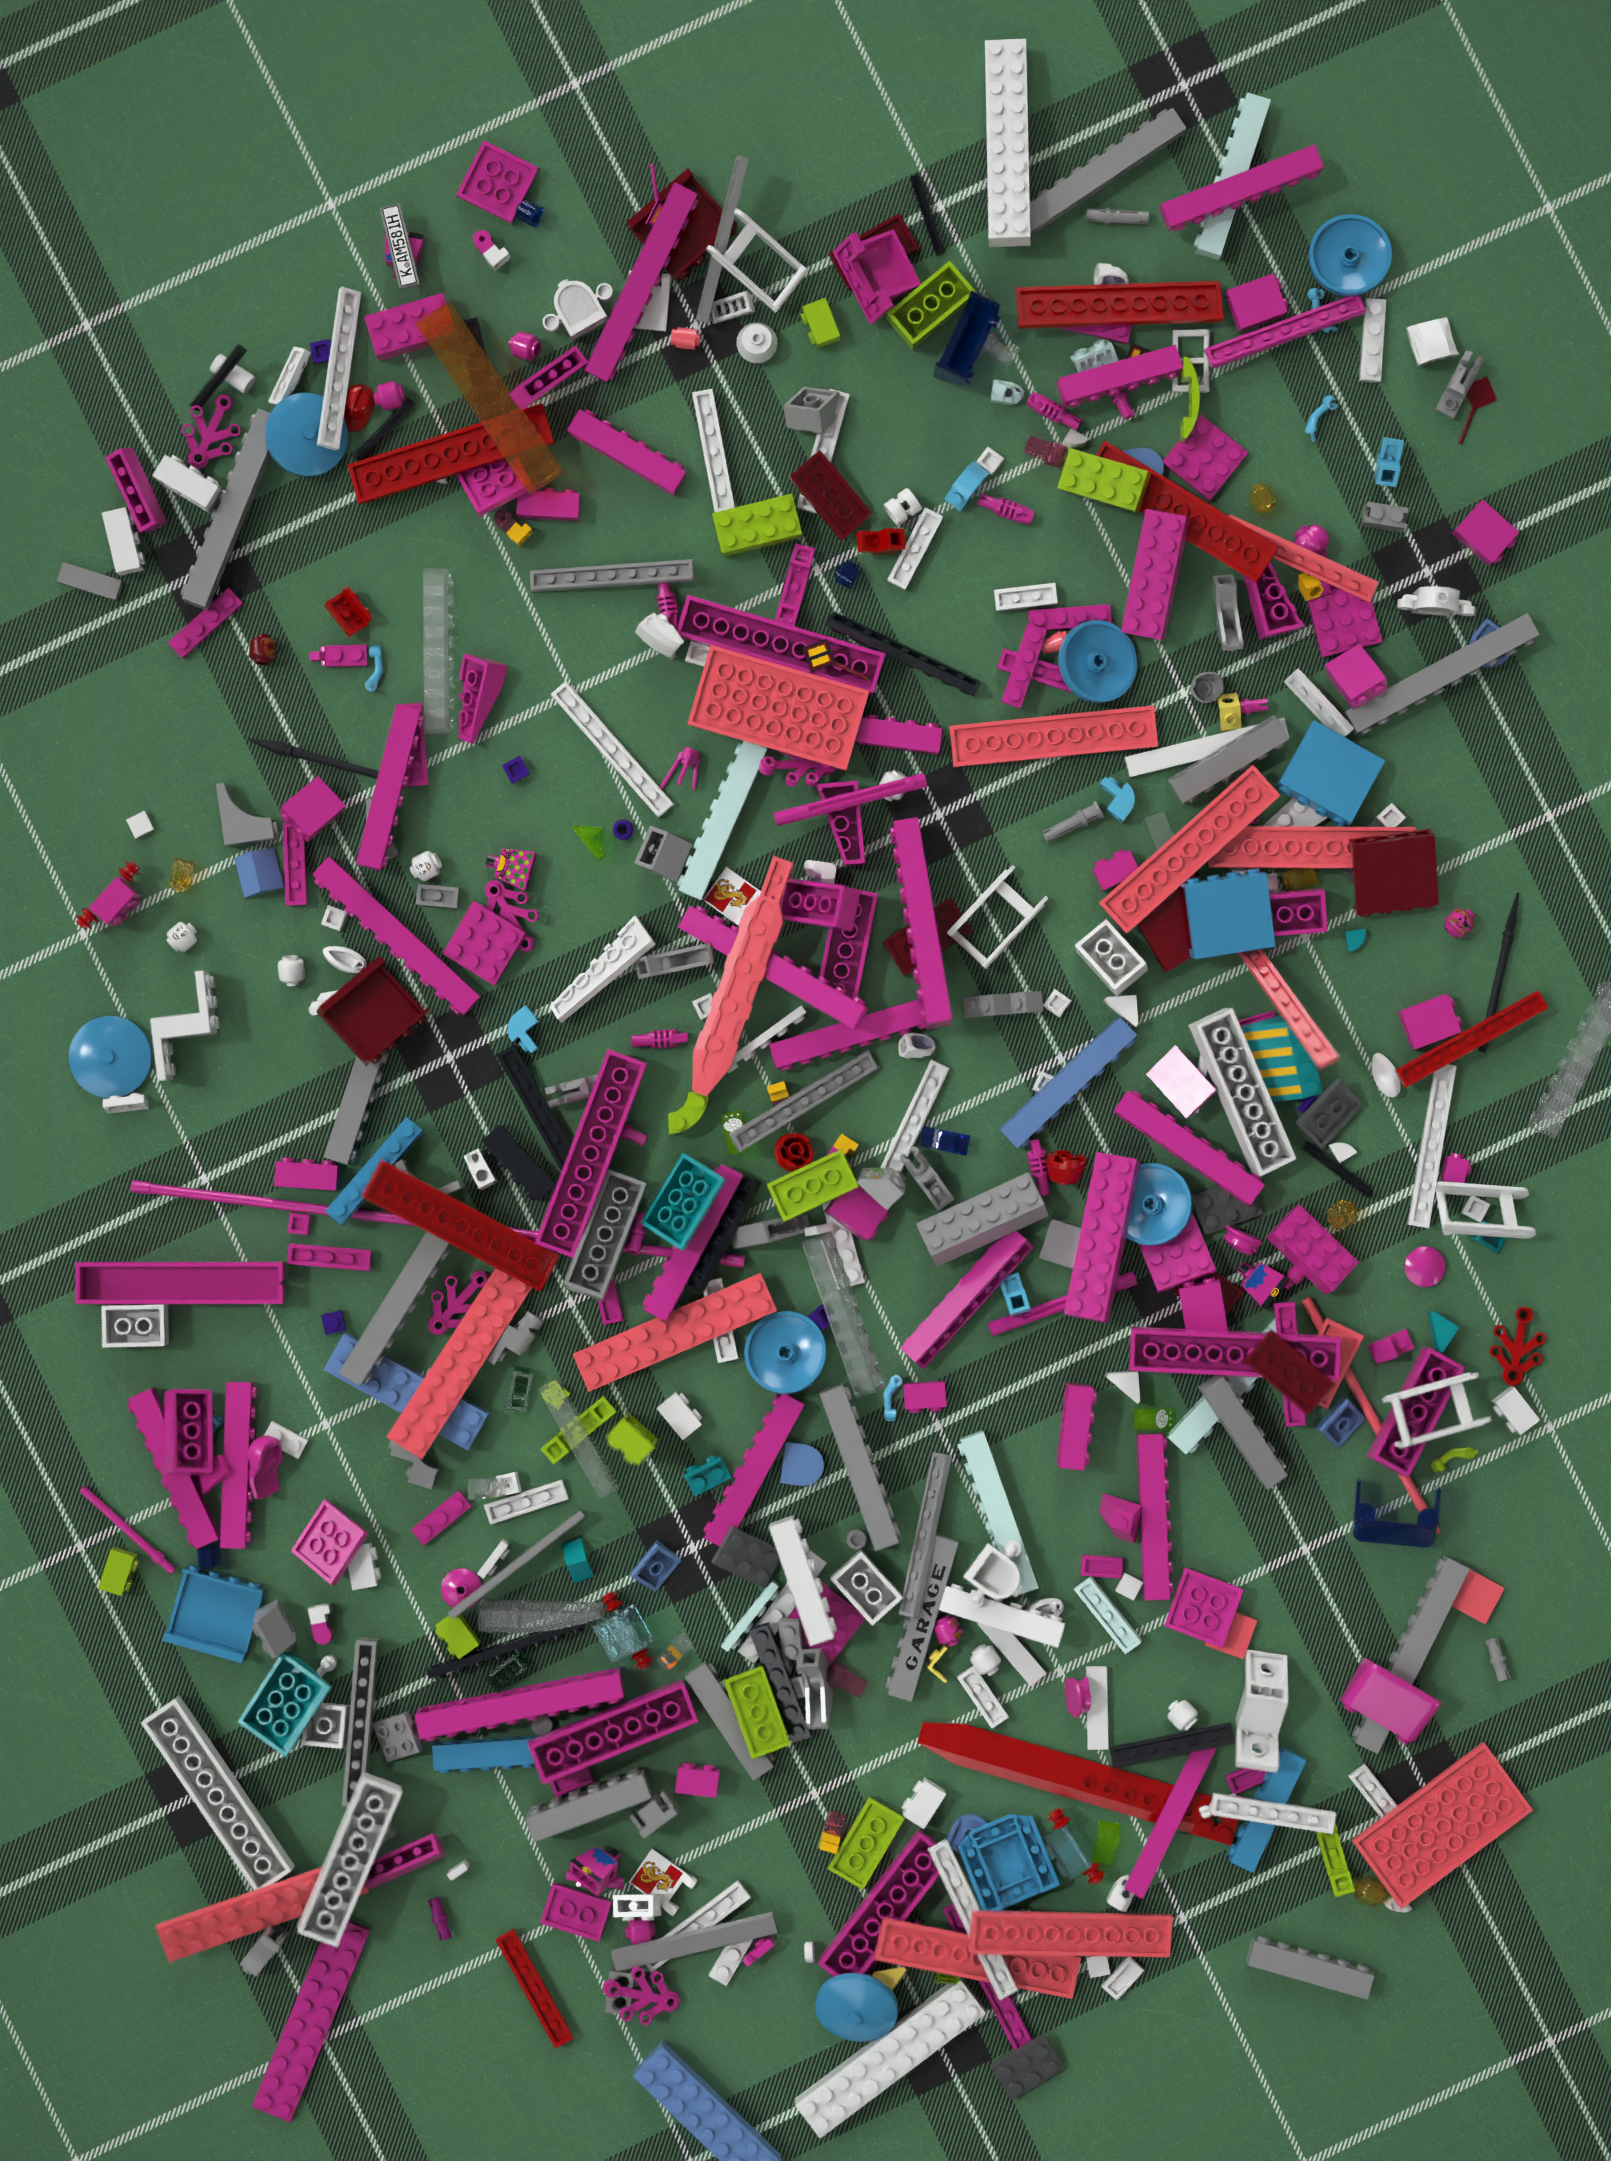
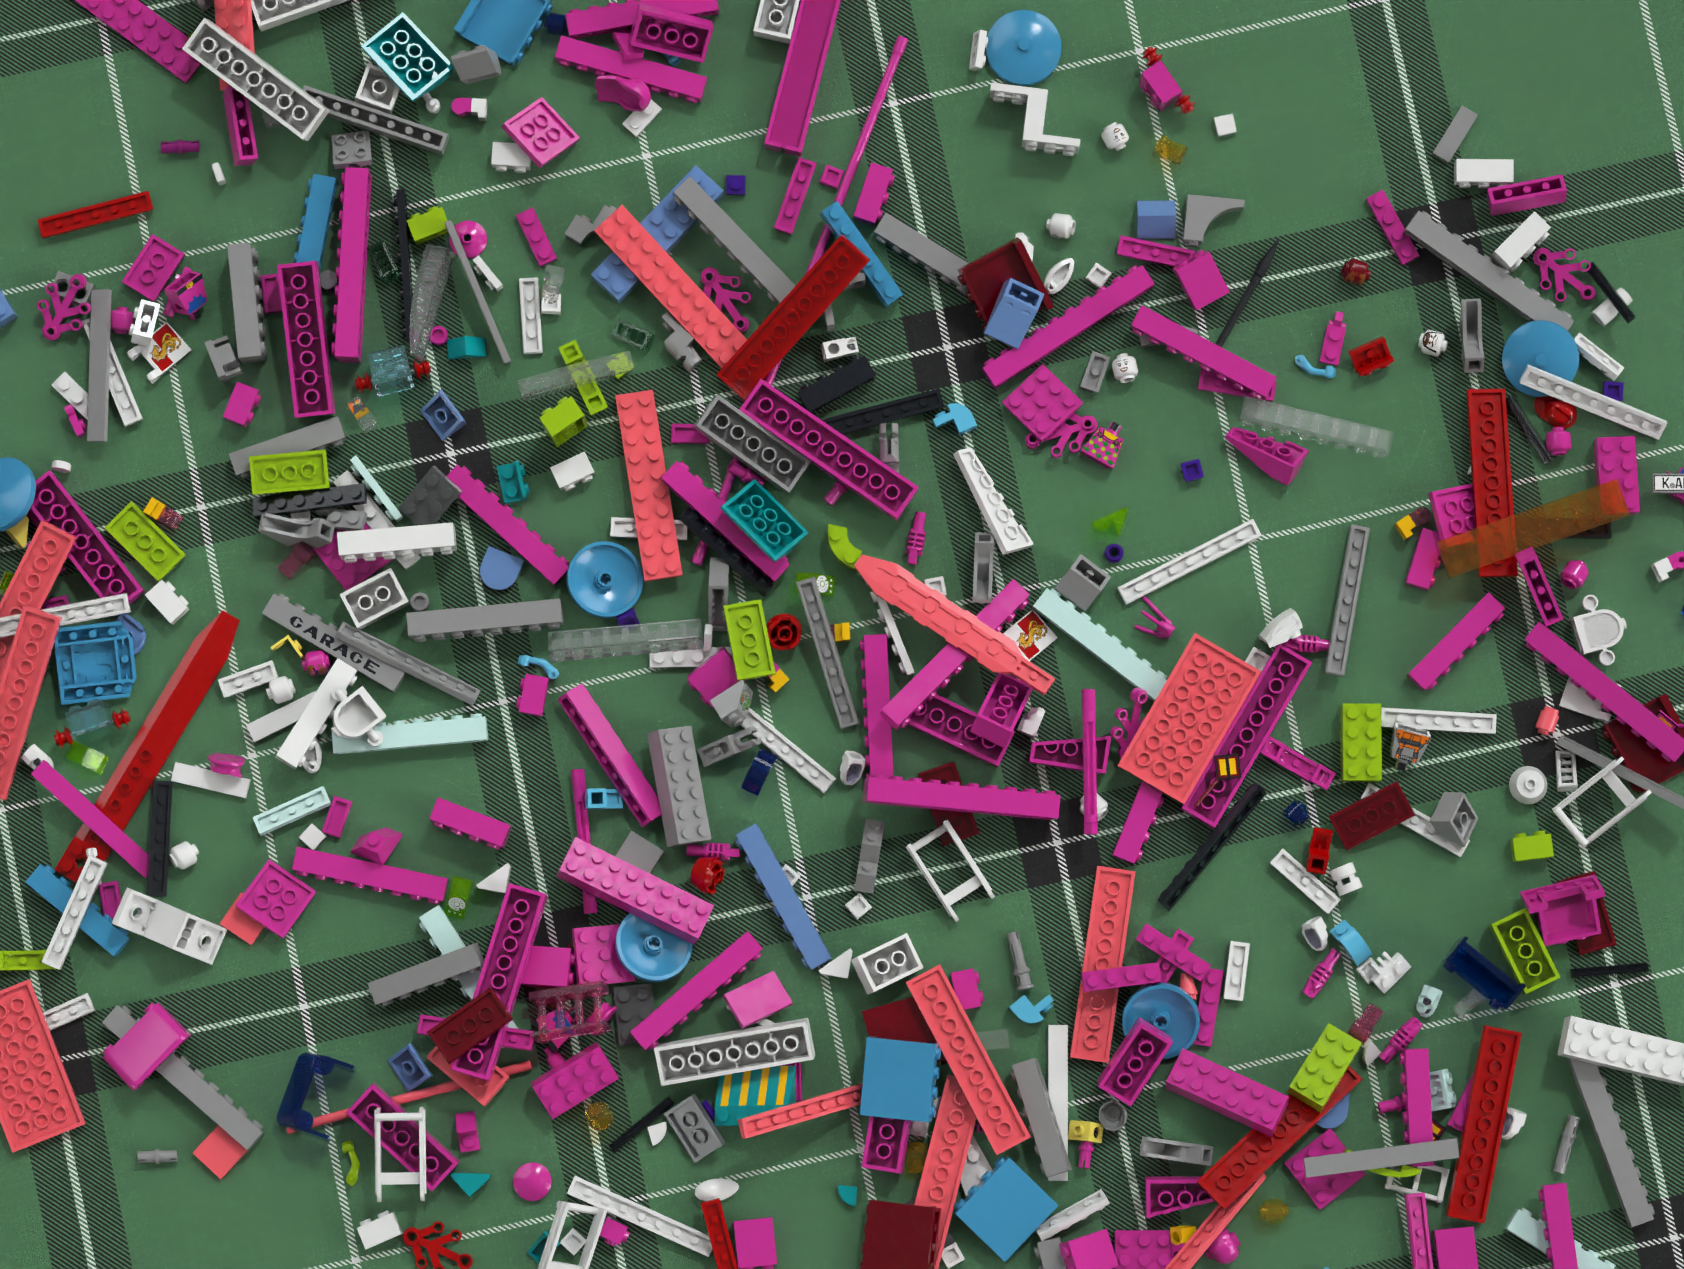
camera: 105 degrees right, 5 degrees down
(300, 512) = (1471, 335): none -> light grey arch
(318, 551) = (1432, 343): none -> white head
(397, 996) = (1013, 312): none -> medium blue slope
(571, 1592) = (439, 335): none -> dark pink tile
(746, 475) = (1408, 744): none -> torso
(966, 524) = (1315, 933): none -> white rock
(986, 439) = (1389, 971): none -> white hinge
(1064, 713) = (1121, 977): none -> dark pink brick
(1147, 677) = (1134, 1061): none -> dark pink brick
(1182, 399) = (1381, 1157): none -> light grey tile
(1230, 1286) = (560, 996): none -> clear pink fence

